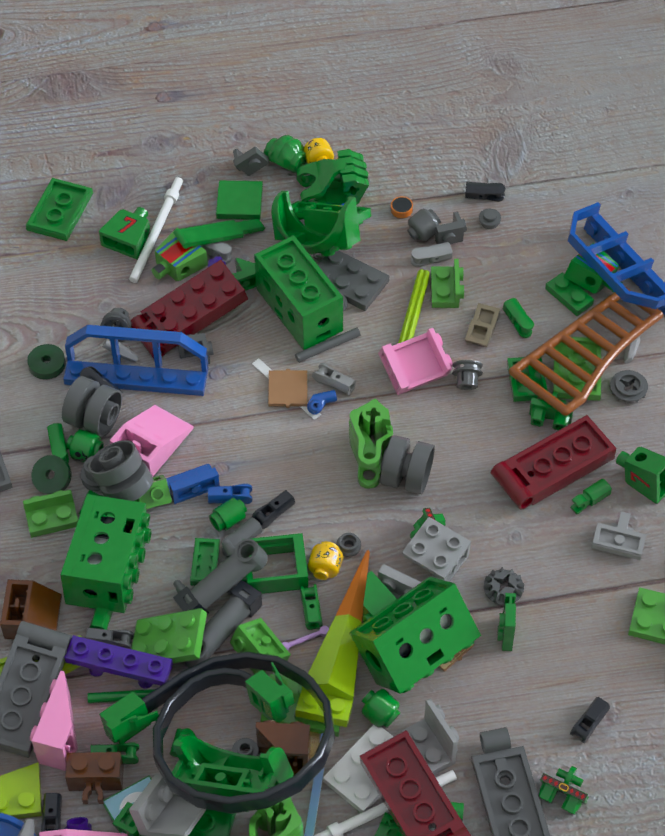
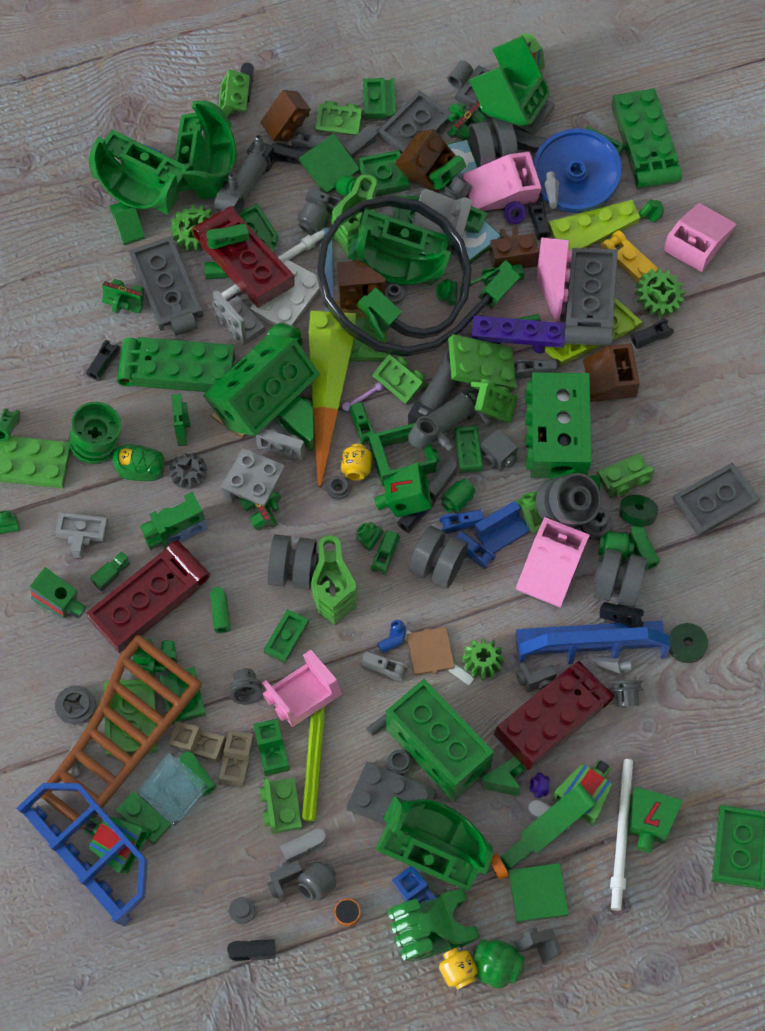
camera: 170 degrees right, 10 degrees up
(166, 595) = (494, 400): none -> bright green bracket
(174, 553) = (499, 451): none -> dark grey brick
(226, 467) = (474, 547): none -> blue bar
(240, 368) = (474, 663): none -> bright green gear
(262, 449) = (431, 554): none -> dark grey wheel
(266, 216) = (498, 867): none -> orange tile
(280, 514) = (406, 492): none -> green torso
(312, 477) = (386, 550): none -> green bar
(327, 495) = (368, 535): none -> green plate
(422, 414) = (286, 636): none -> green plate
(432, 808) = (228, 235): none -> green bar
(449, 329) = (271, 747): none -> green slope
(484, 446) = (220, 610): none -> green bar
(507, 698) = (173, 364): none -> green hinge
(514, 343) = (199, 742): none -> dark tan slope
(521, 518) = (174, 523): none -> green hips
(542, 305) = (172, 789): none -> clear light blue plate
(555, 600) = (138, 463): none -> green piece
(601, 620) = (98, 422): none -> green wheel

